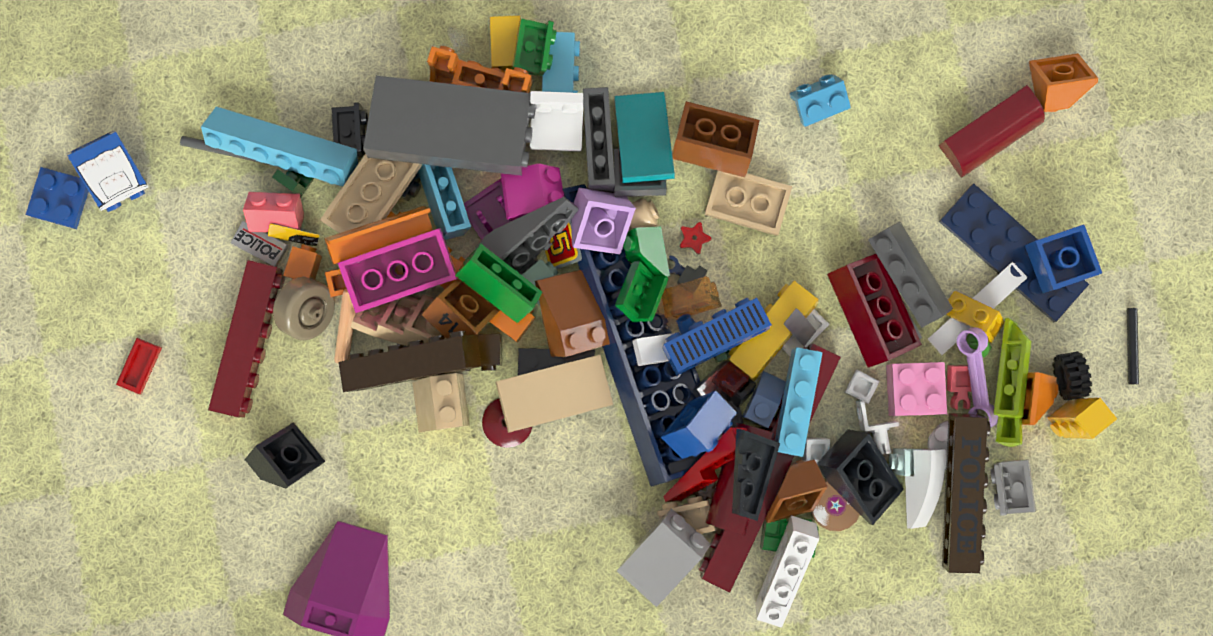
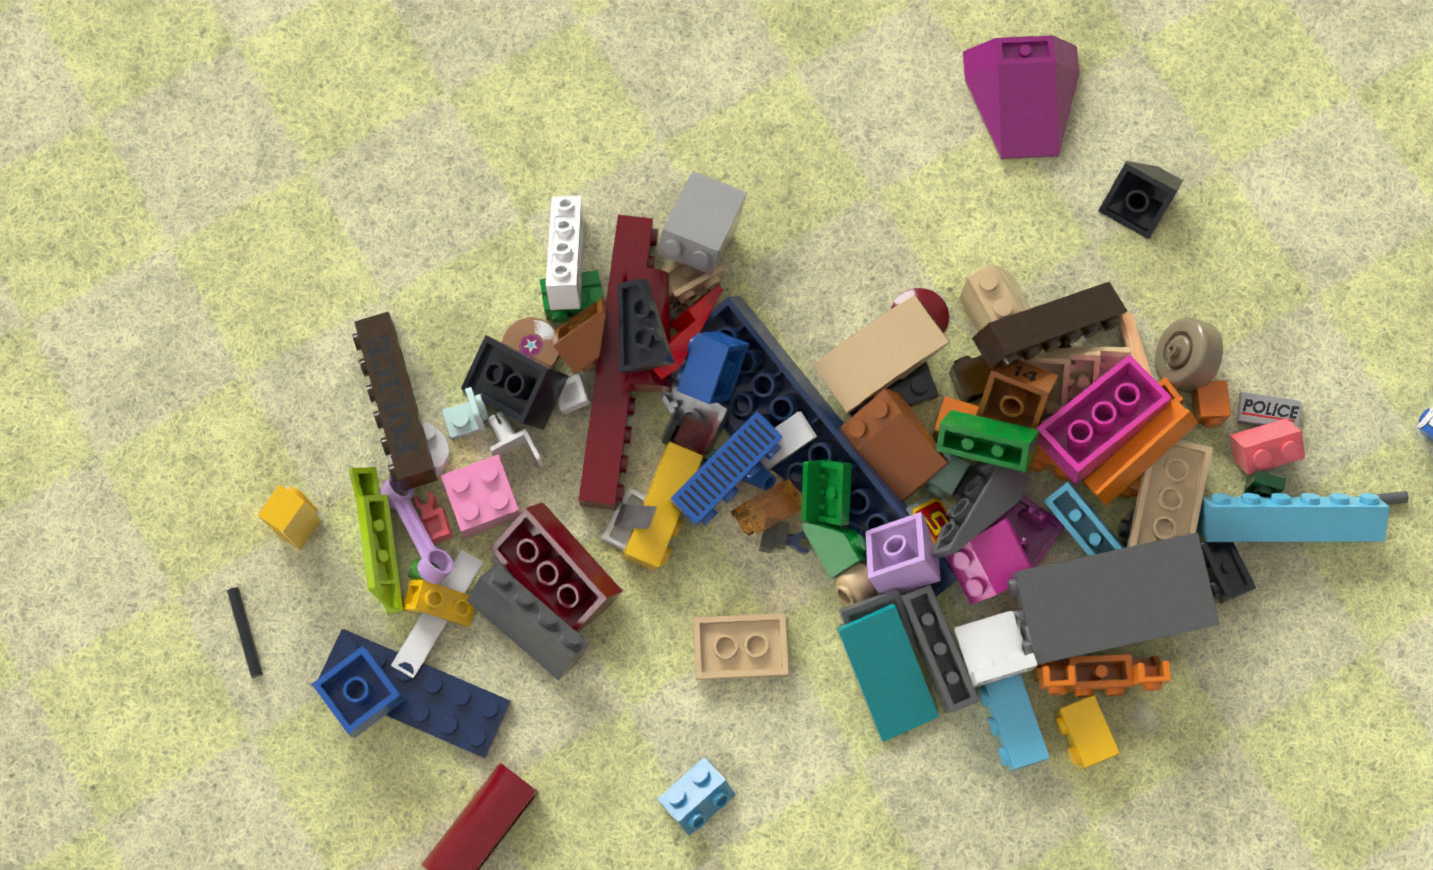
camera: 160 degrees right, 10 degrees down
(139, 366) = (1338, 241): red tile -> none
(246, 340) = (1236, 304): dark red brick -> none
(293, 235) = (1234, 431): yellow sticker -> none
(534, 46) = (1054, 728): green bracket -> none
(696, 231) = (781, 577): red plate -> none
(715, 139) = (805, 698): dark orange brick -> none
(764, 400) = (646, 429): medium blue slope -> none
(798, 401) = (612, 429): medium azure brick -> none
(862, 386) = (542, 483): white tile -> none
(924, 486) = (441, 395): white slope -> none
(1013, 487) = (341, 428): light grey bracket -> none
(1039, 396) = (342, 531): orange slope -> none
(1072, 375) = (309, 568): black tyre -> none

